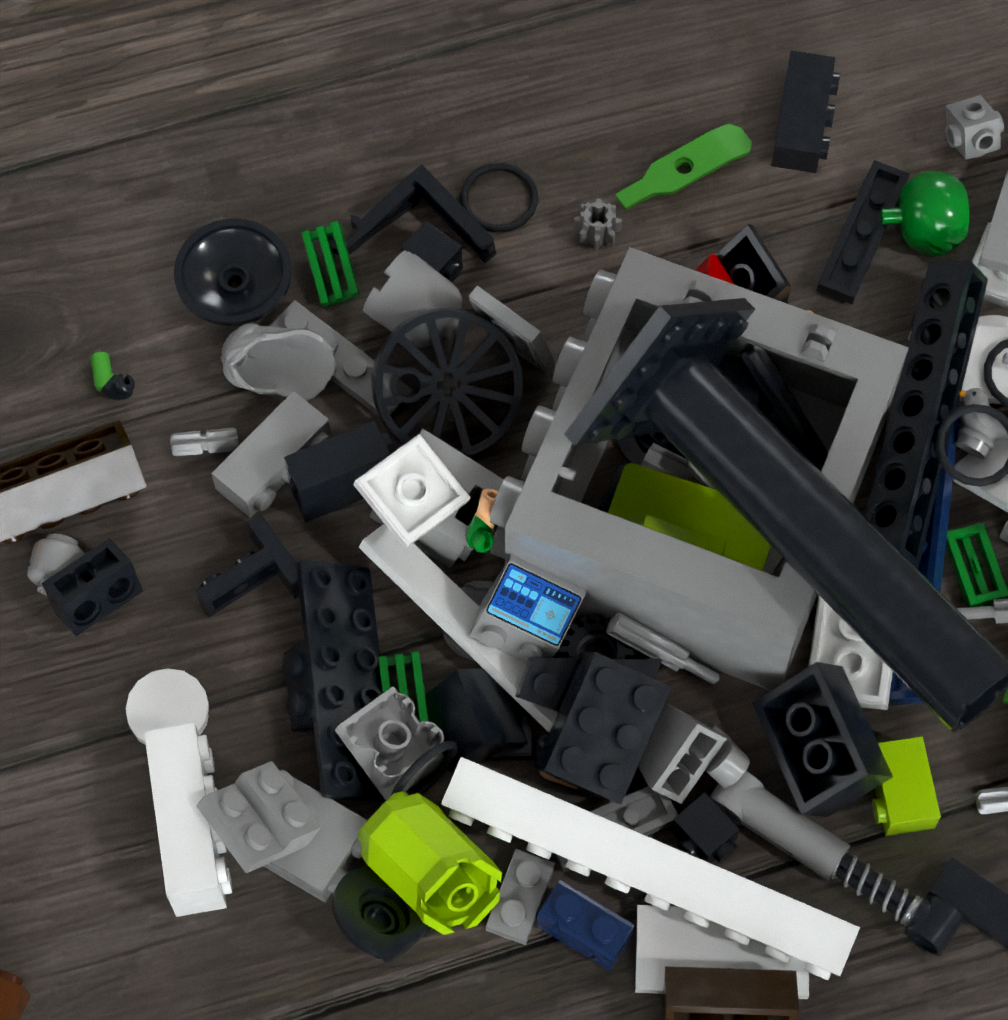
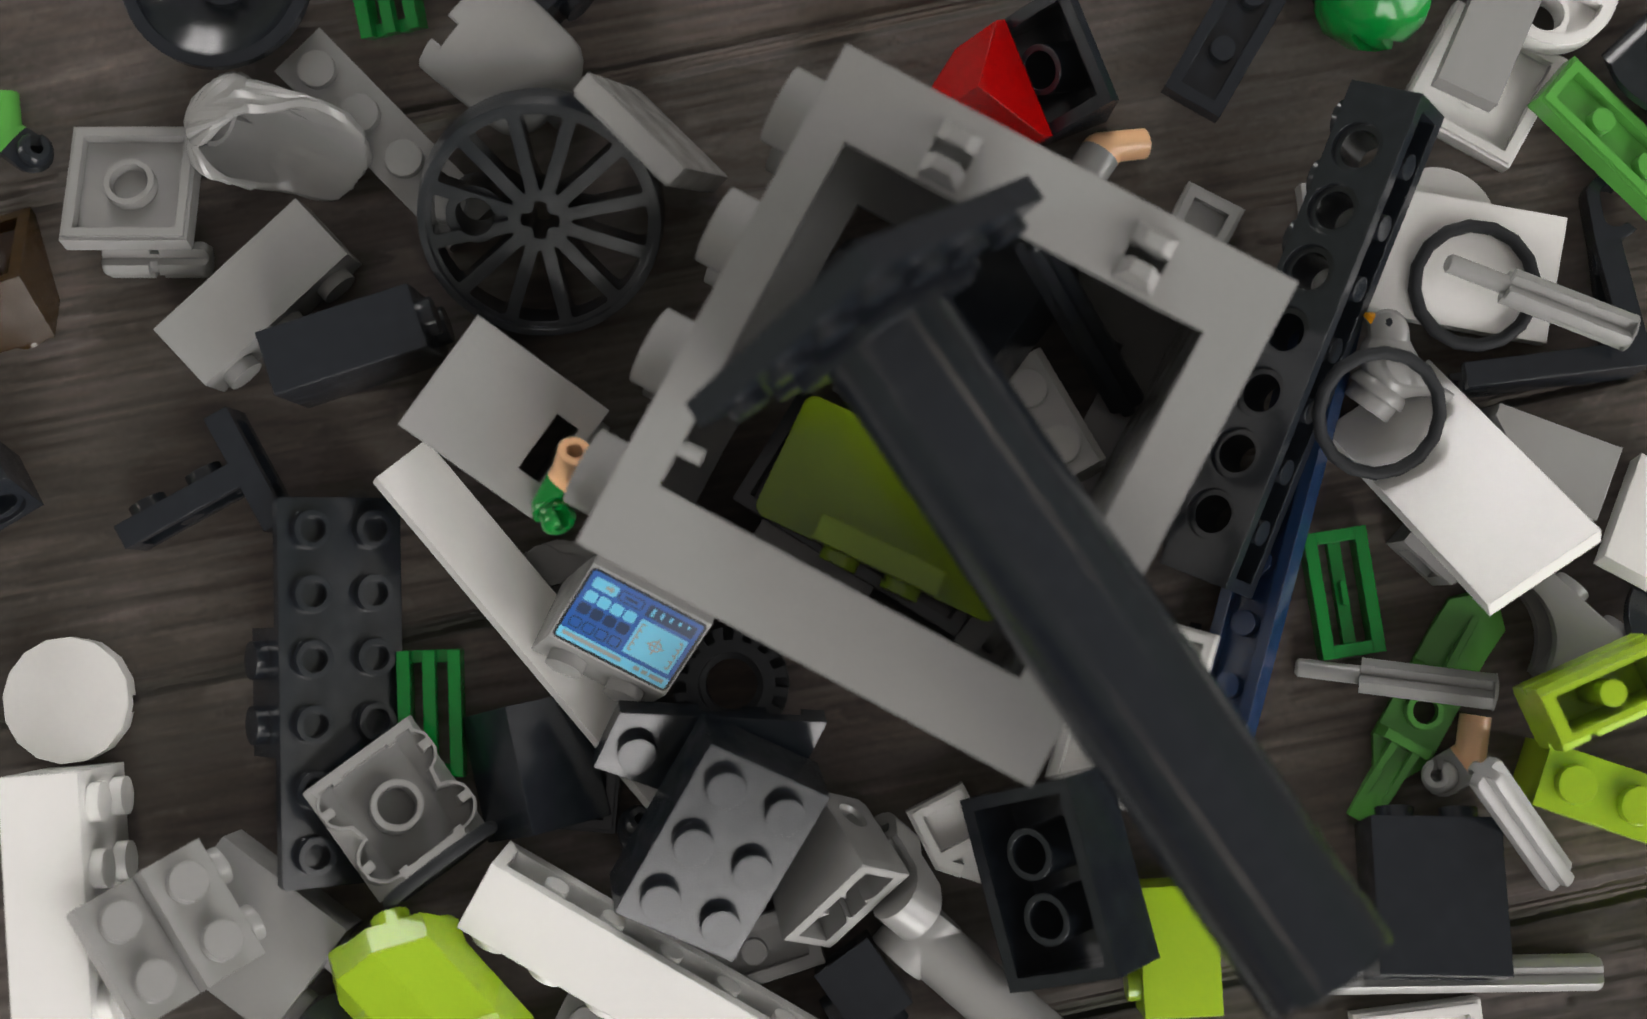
camera: 10 degrees right, 20 degrees up
(186, 400) = (129, 190): none -> light grey tile
(411, 491) = (448, 425): white tile -> none
(657, 646) = (824, 692): light grey axle -> none
(748, 734) = (944, 832): none -> white tile

